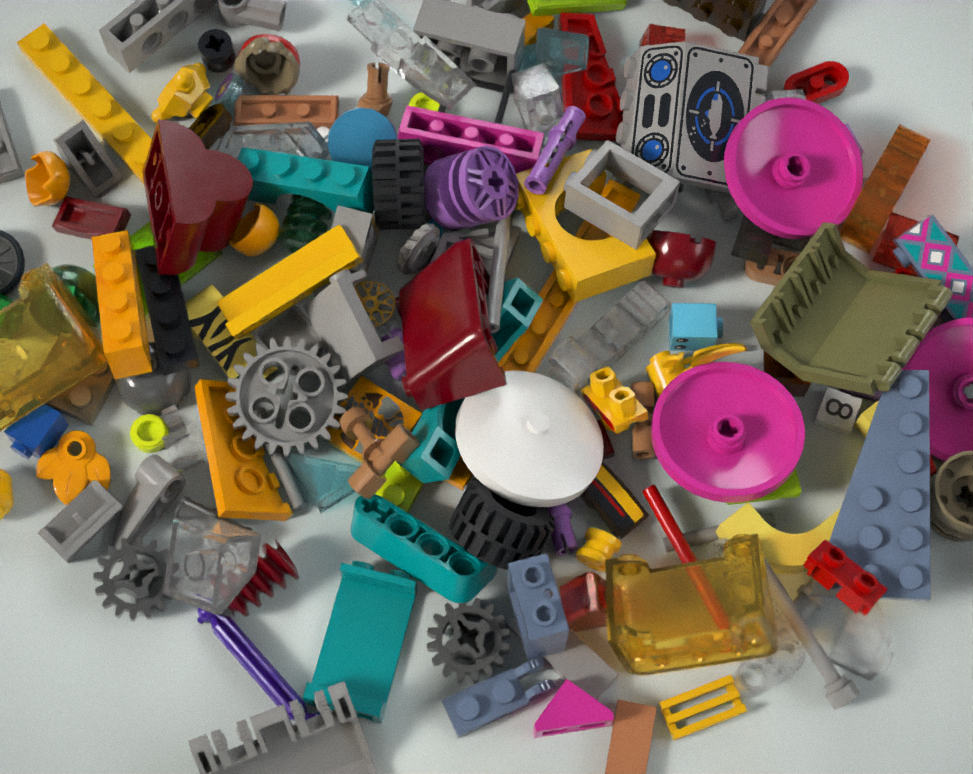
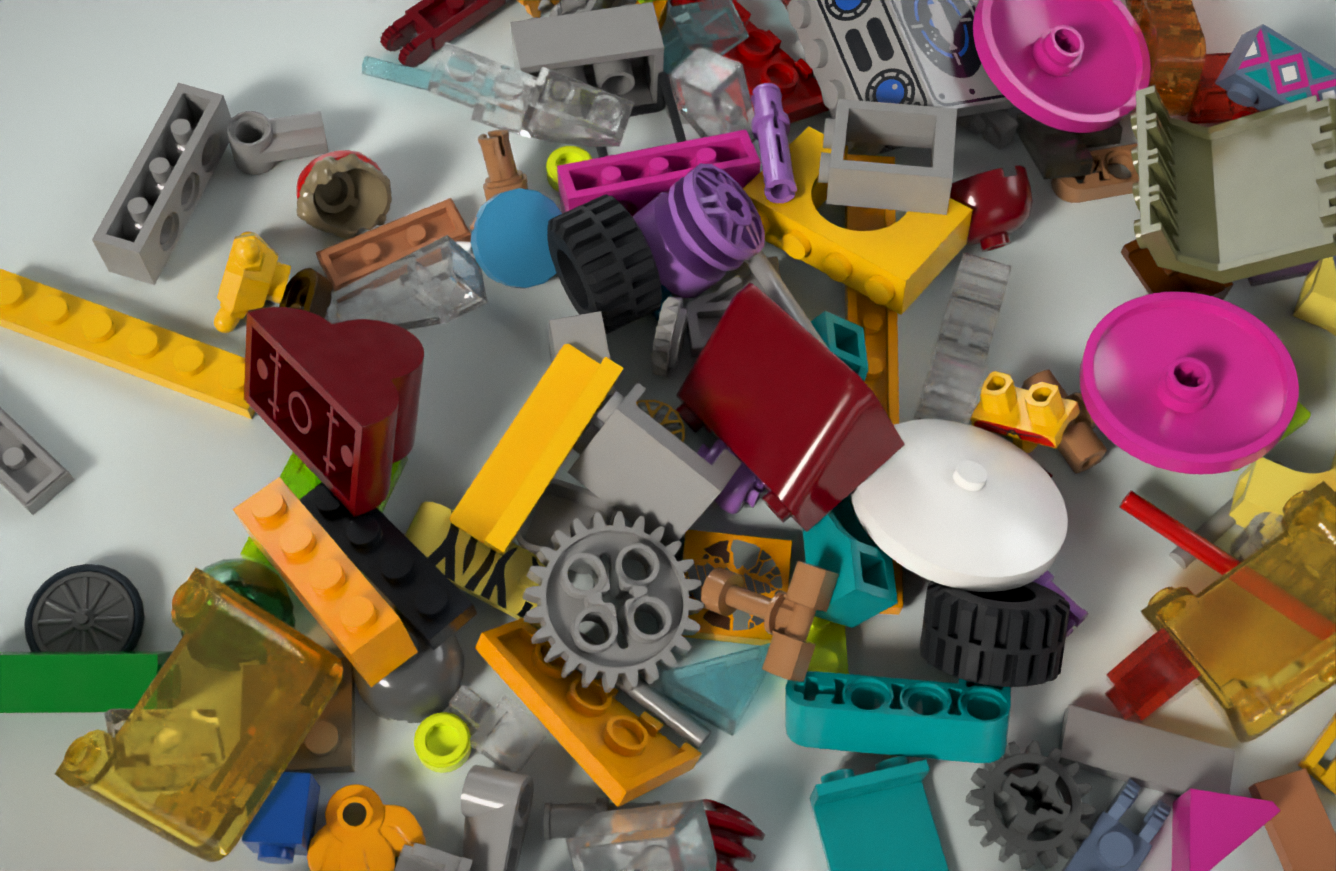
camera: 30 degrees left, 5 degrees down
(48, 180) = (116, 467): light orange hair -> none
(87, 158) = (157, 415): light grey slope -> none
(89, 218) = (203, 493): dark red tile -> none
(215, 59) = (266, 220): black wheel -> none
(229, 90) = (305, 247): clear light blue tile -> none
(256, 232) = (445, 408): light orange hair -> none
(303, 222) = (500, 357): clear green piece -> none
(314, 178) = (508, 299): teal arch -> none
(537, 614) = (1138, 721): sand blue window -> none
(598, 548) = (1113, 605): yellow wheel -> none
(614, 502) = (1099, 540): slope -> none
(667, 366) = (1060, 347): yellow plant -> none
(693, 326) = (1050, 283): medium azure brick -> none
(838, 411) = (1271, 303): white tile -> none

